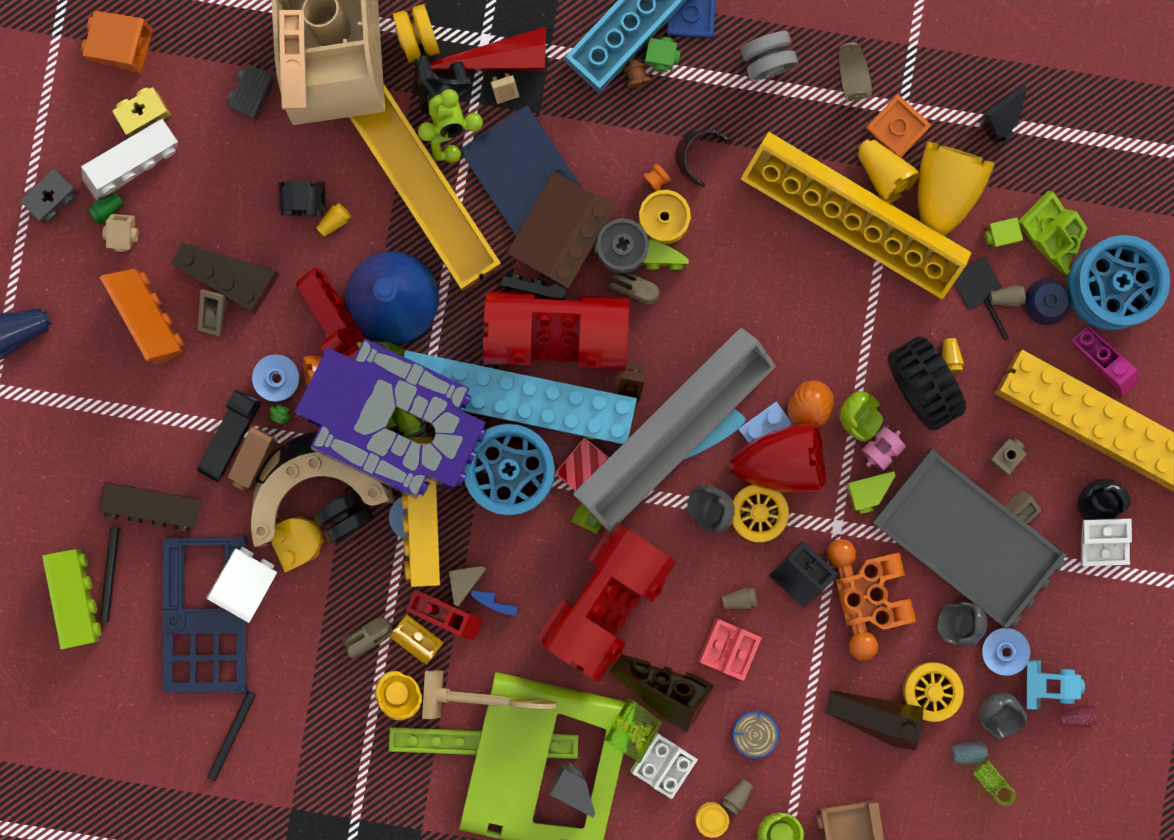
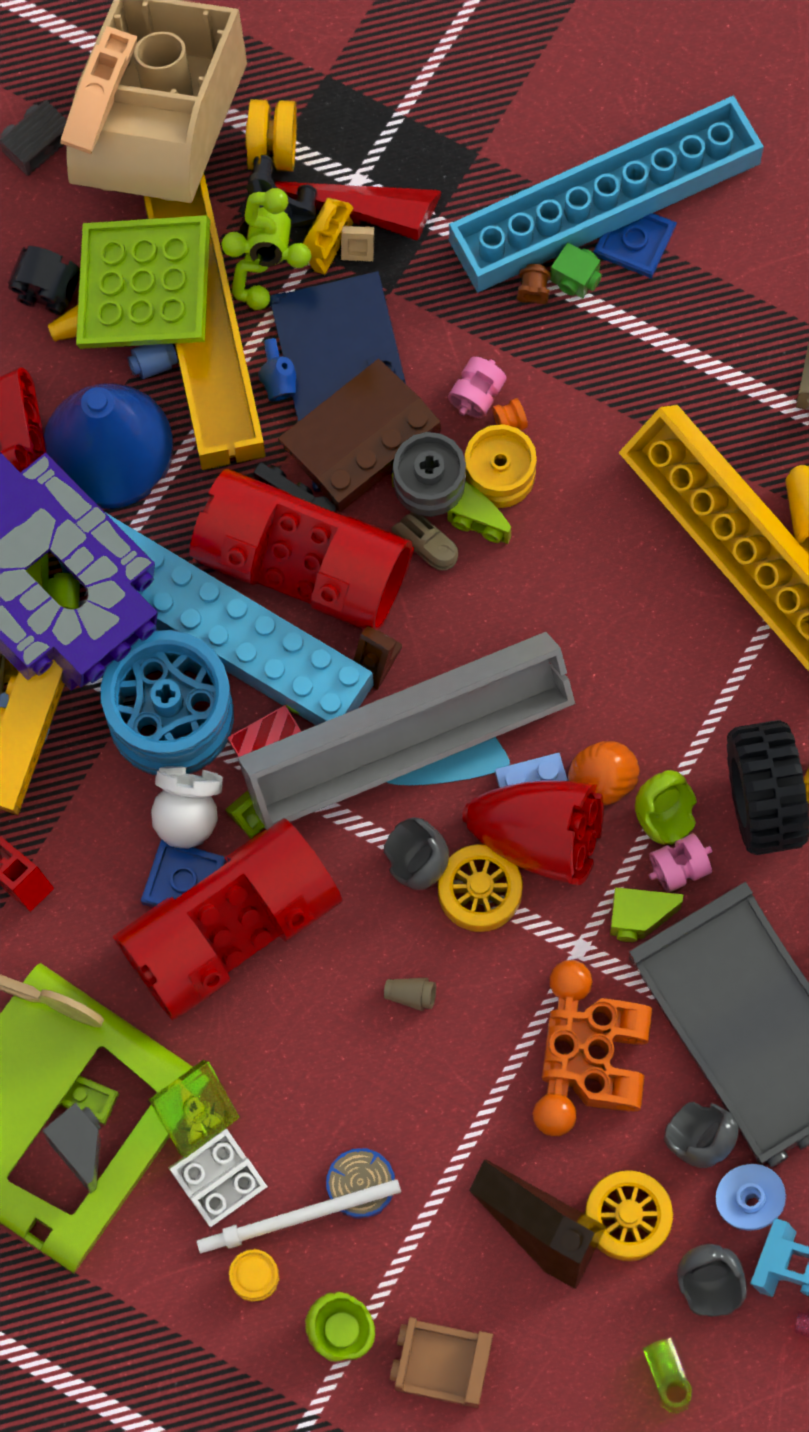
camera: 25 degrees right, 15 degrees down
(373, 178) = (143, 282): none -> lime plate
(398, 225) = (152, 359): none -> medium blue brick
(463, 581) = (49, 831): dark tan slope -> none
(482, 91) = (326, 233): none -> yellow slope
(487, 206) = (277, 374): none -> blue piece
(488, 600) = (73, 866): blue slope -> none
(548, 533) = (184, 809): none -> white tile
(562, 578) = (177, 871): none -> blue tile
(626, 169) = (475, 391): none -> bright pink wheel
(670, 694) = (264, 1084): dark brown wedge -> none
(682, 148) = (591, 381): black piece -> none
(688, 799) = (233, 1236): none -> white bar
(729, 649) = (370, 1054): coral slope -> none
(737, 797) = (301, 1258): dark tan cone -> none
(769, 55) = (713, 315): light grey wheel -> none
(803, 574) = (508, 987): black slope -> none
(969, 753) = (649, 1319): clear light blue brick -> none

